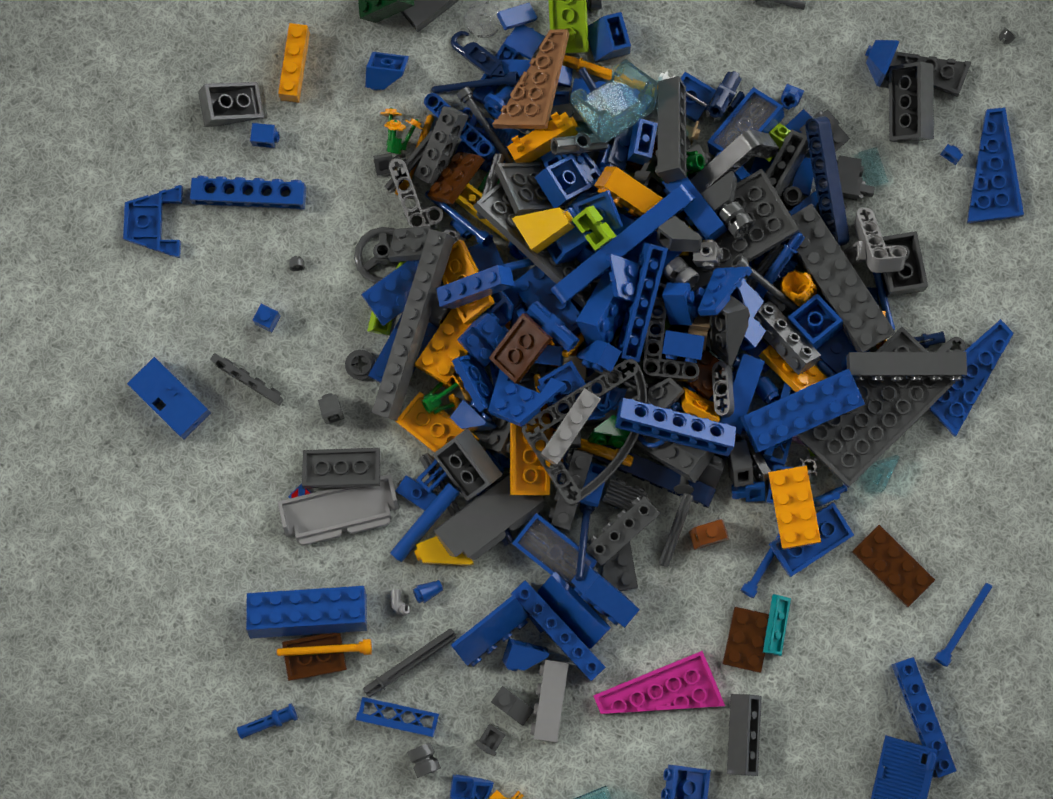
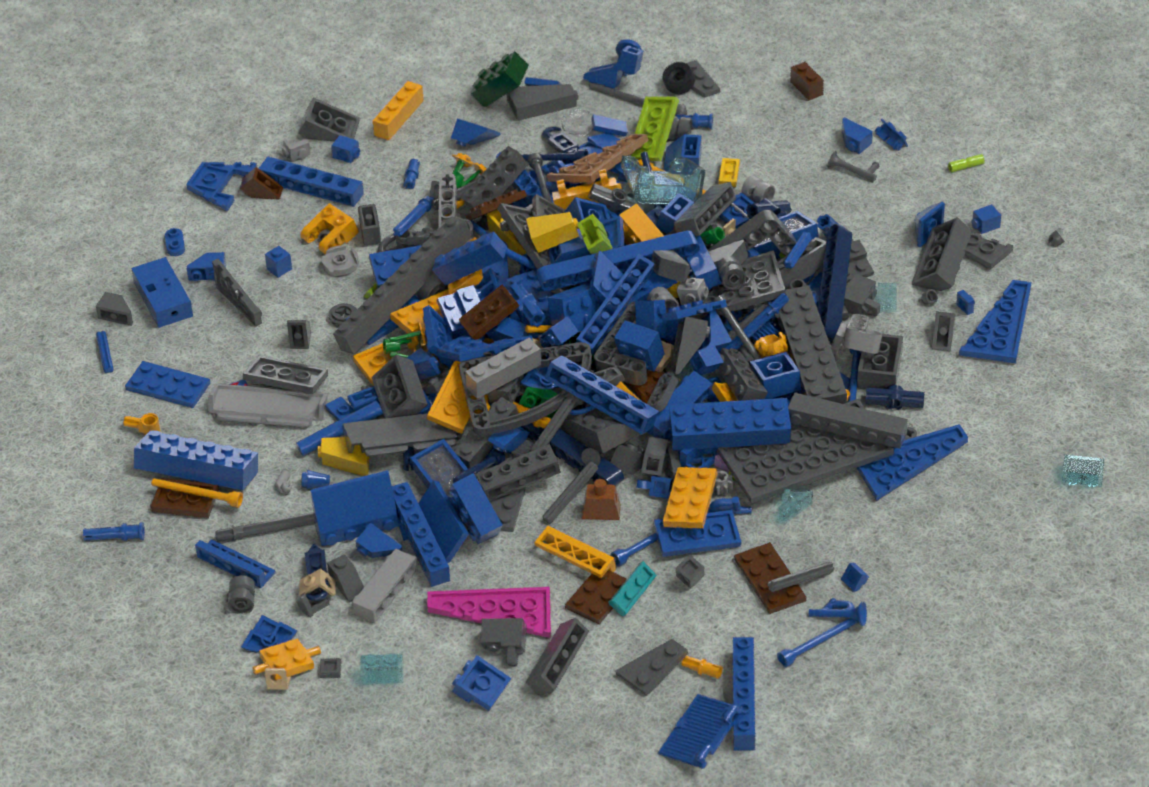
camera: 20 degrees right, 35 degrees down
(129, 434) = (114, 309): none -> dark grey slope
(146, 319) = (174, 242): none -> blue plate
(147, 492) = (104, 352): none -> blue axle
(199, 346) = (202, 267): none -> blue slope
(200, 216) = (260, 185): none -> reddish brown slope
(216, 153) = (296, 150): none -> light grey bracket
(229, 513) = (167, 384): none -> blue plate
(229, 577) = (146, 423): none -> light orange axle
(303, 247) = (340, 224): none -> light orange brick
(326, 282) = (348, 262): none -> light grey plate
(336, 239) = (369, 224): none -> dark grey brick
(344, 147) = (411, 174): none -> blue pin
(378, 191) = (423, 206): none -> blue axle
(480, 706) = (316, 559): none -> dark blue plate
(488, 726) = (316, 580): none -> tan bracket
(636, 466) = (556, 422): none -> dark grey axle
(660, 44) = (729, 171): none -> yellow plate
(687, 725) = (506, 635): none -> dark grey hinge
(700, 64) = (757, 189): none -> light grey wheel
(711, 596) = (573, 547): none -> light orange fence
(783, 157) = (797, 250): none -> blue axle
(824, 591) = (690, 571): none -> dark grey brick
(831, 712) = (651, 668): none -> dark grey wing
(873, 695) = (702, 667): none -> light orange axle
(914, 153) = (931, 295): none -> dark grey hinge
(925, 563) = (800, 576): none -> dark grey axle
(928, 302) = (895, 397): none -> dark blue piece
(933, 32) = (986, 219): none -> blue brick
(944, 198) = (943, 331): none -> dark grey slope
(970, 542) = (854, 577): none -> blue tile
(981, 588) = (842, 609): none -> blue piece

